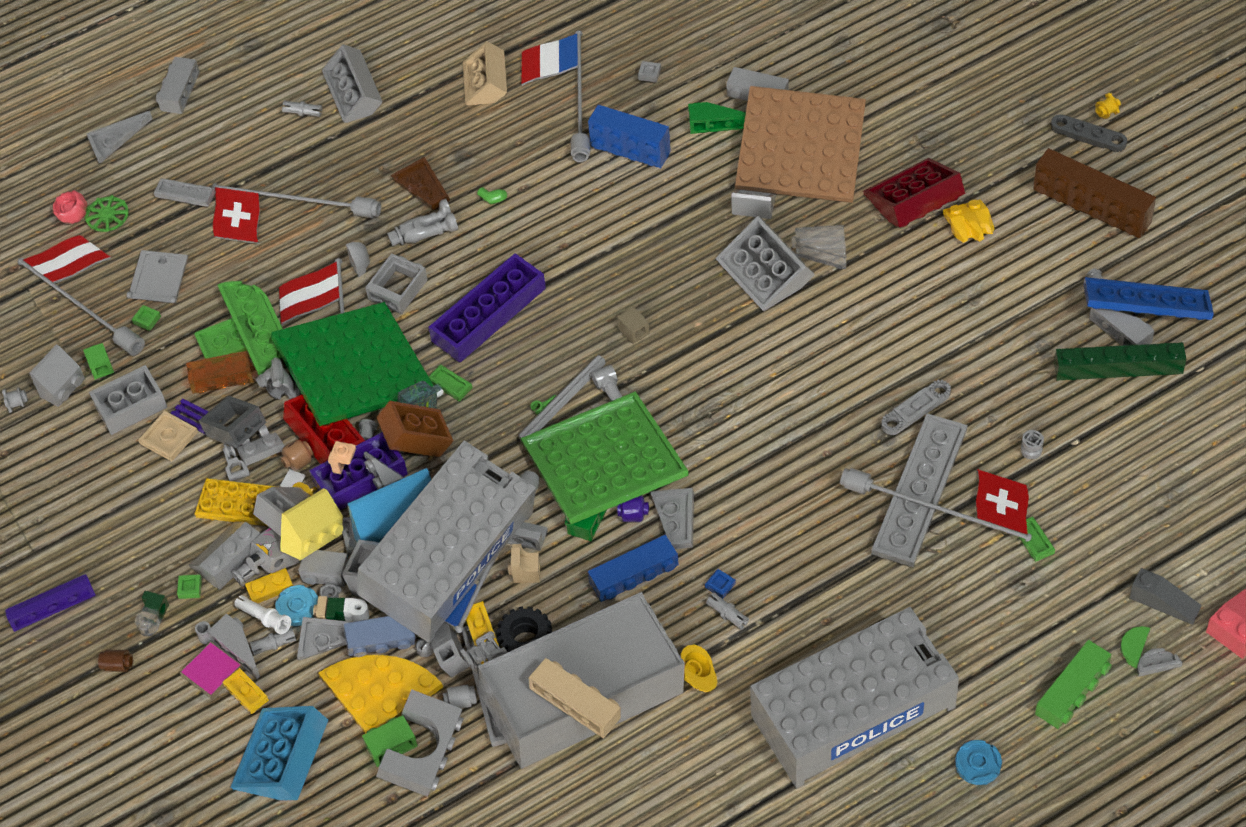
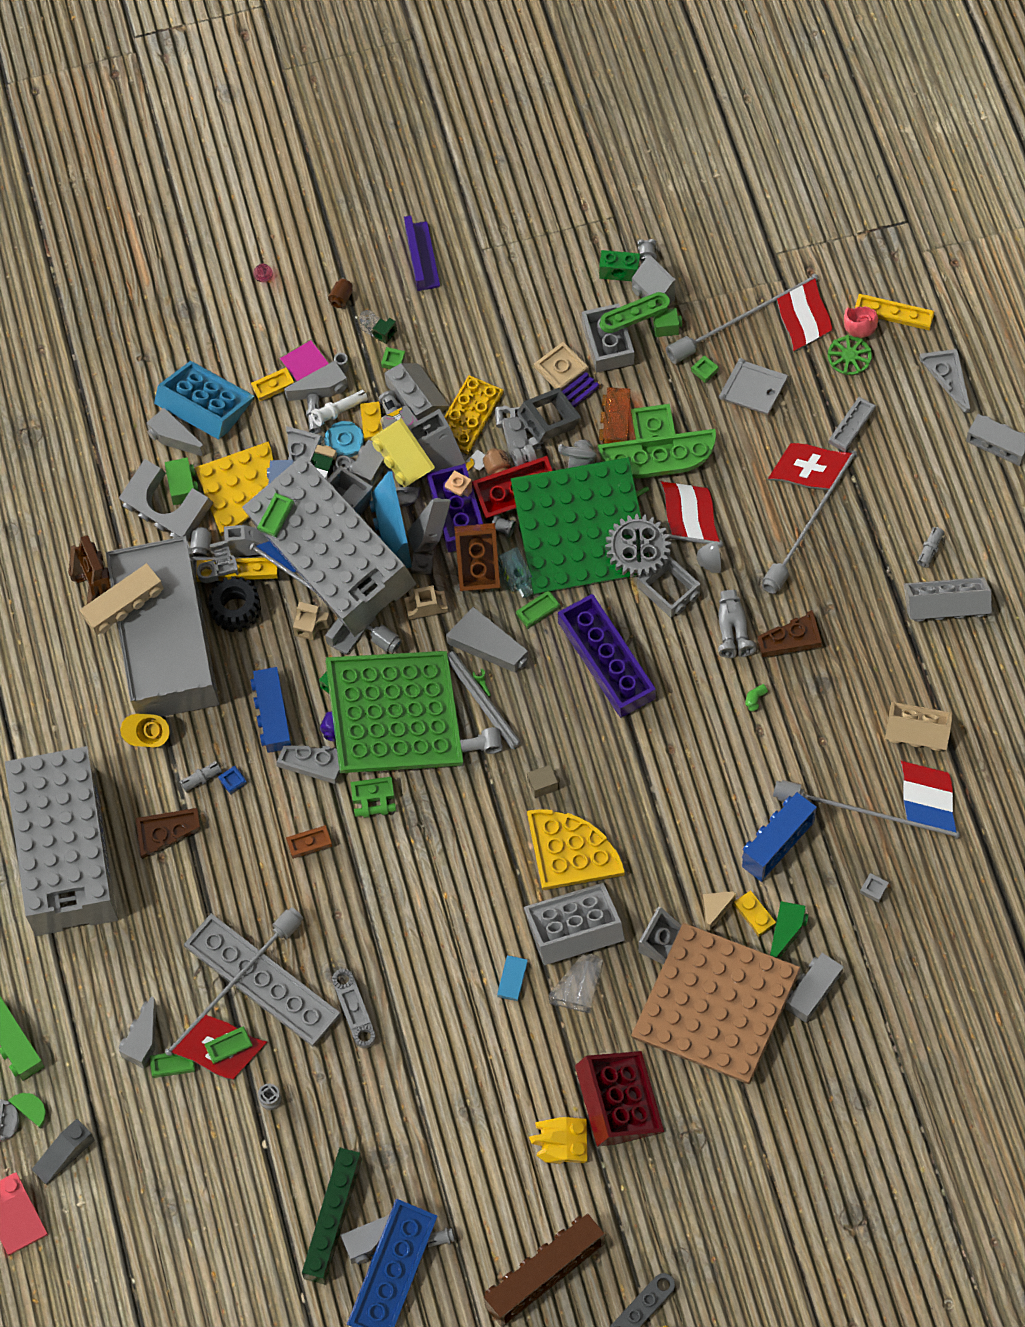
camera: 105 degrees right, 10 degrees up
(37, 415) = (618, 265): none -> green brick
(50, 189) = (897, 312): none -> yellow tile
(100, 372) = (634, 312): none -> bright green plate
(100, 748) = (262, 273): none -> clear pink plate
(285, 429) = (523, 455): none -> light grey wheel
(329, 772) = (173, 433): none -> light grey slope
(366, 305) = (657, 545): none -> light grey gear
(436, 574) = (275, 515): none -> bright green tile
(498, 409) = (487, 641): none -> light grey slope
(537, 750) = (87, 564): none -> reddish brown plate
(692, 458) = (373, 790): none -> bright green plate
(694, 288) = (570, 850): none -> yellow plate
(703, 146) = (754, 913): none -> yellow plate
(711, 169) = (715, 906): none -> tan slope
(763, 493) = (309, 841): none -> dark orange plate
(798, 624) = (165, 829): none -> reddish brown wing
(835, 298) = (512, 978): none -> dark azure tile
(998, 492) = (228, 1045): none -> bright green tile
(1022, 567) = (141, 1039): none -> light grey slope

